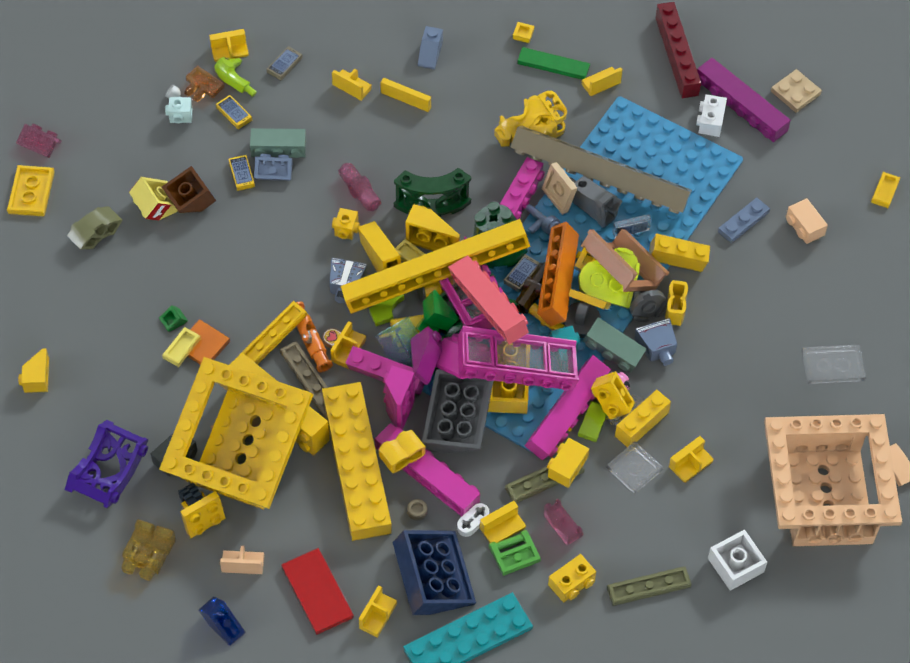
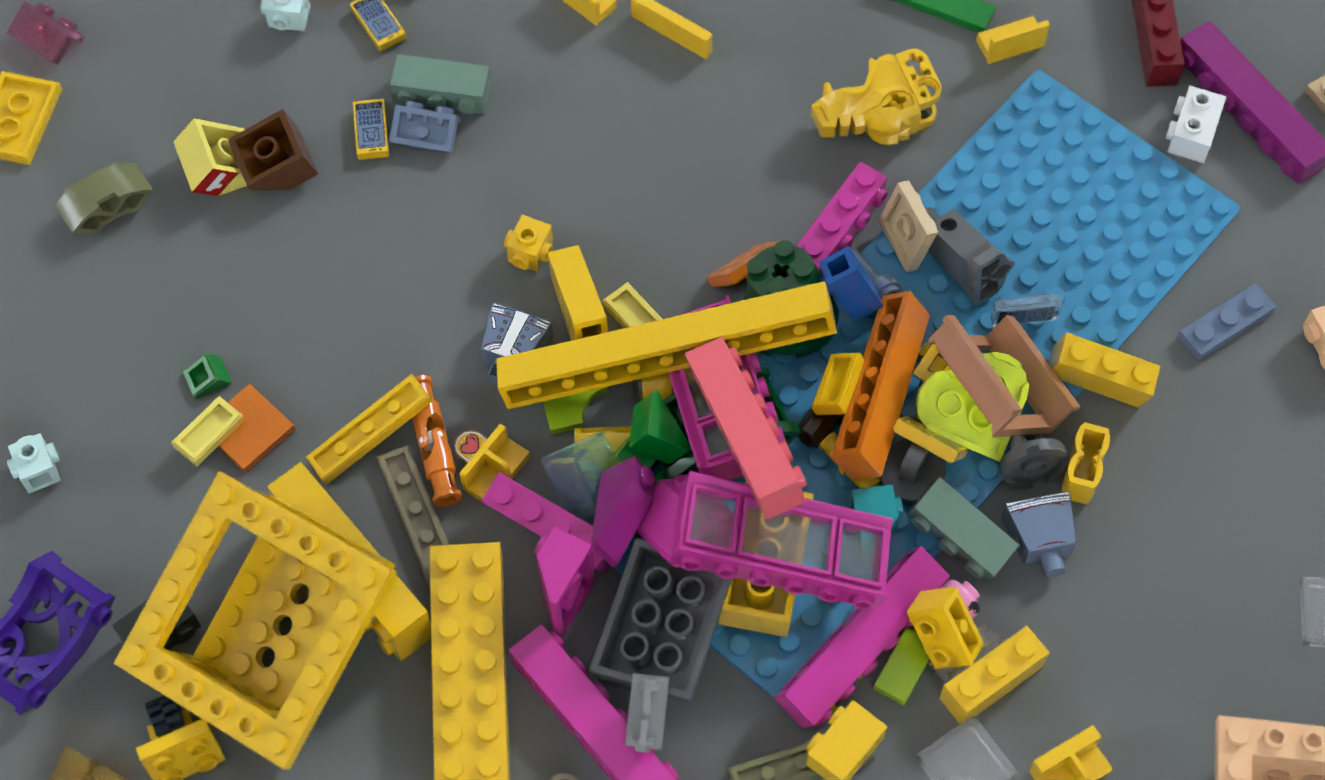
camera: 10 degrees right, 5 degrees up
(85, 375) = (34, 462): none -> light aqua brick
(359, 187) = (565, 179): clear pink piece -> none
(401, 451) = (549, 683): yellow brick -> none
(428, 230) = (667, 273): yellow slope -> none
(453, 186) = (652, 198): dark green fence -> none
(457, 458) = (647, 712): none -> light grey hinge
(468, 222) = (736, 270): none -> orange tile
(520, 272) = (807, 377): tile -> none
(533, 222) = (850, 284): none -> blue brick
(534, 275) = (838, 384): none -> yellow tile
(600, 168) = (988, 201): dark tan brick -> none

